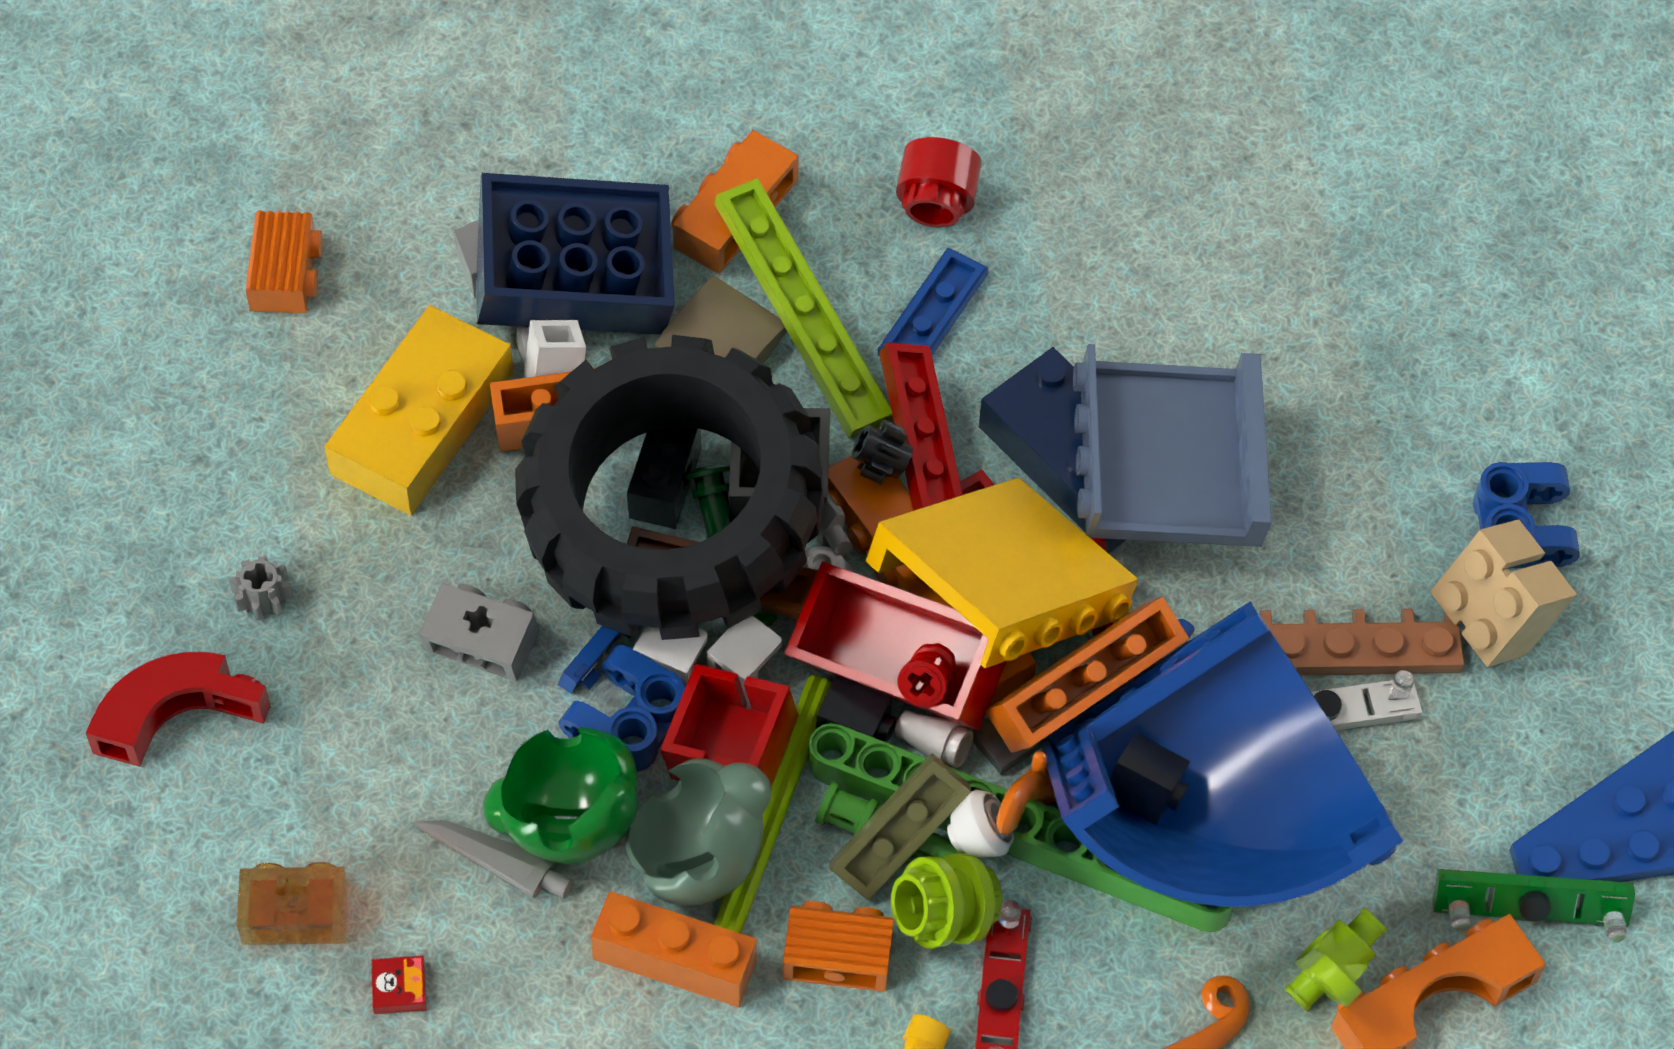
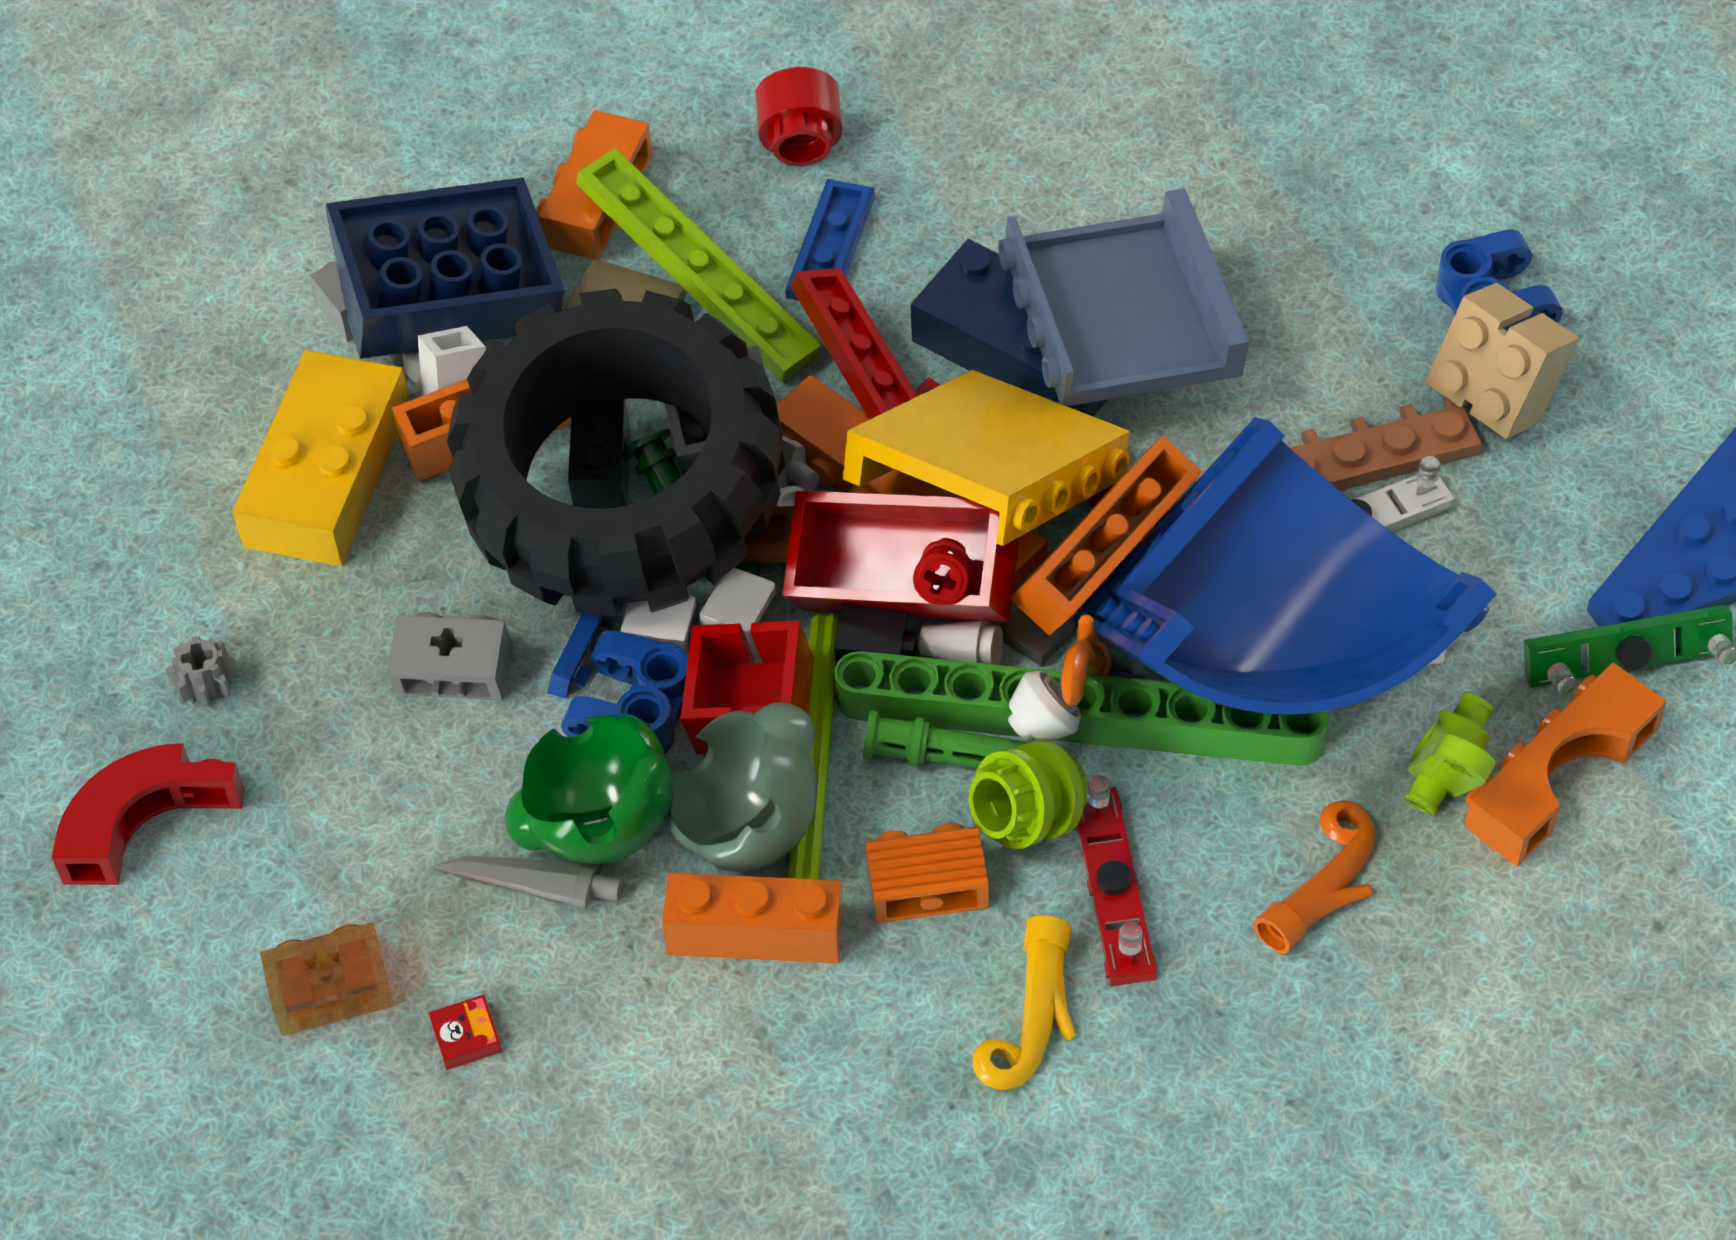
camera: 10 degrees left, 5 degrees down
(282, 261) = (134, 351): orange brick -> none
(882, 452) = (825, 374): black gear -> none
(900, 826) = (957, 733): olive hinge -> none
(1149, 779) = (1214, 621): black brick -> none

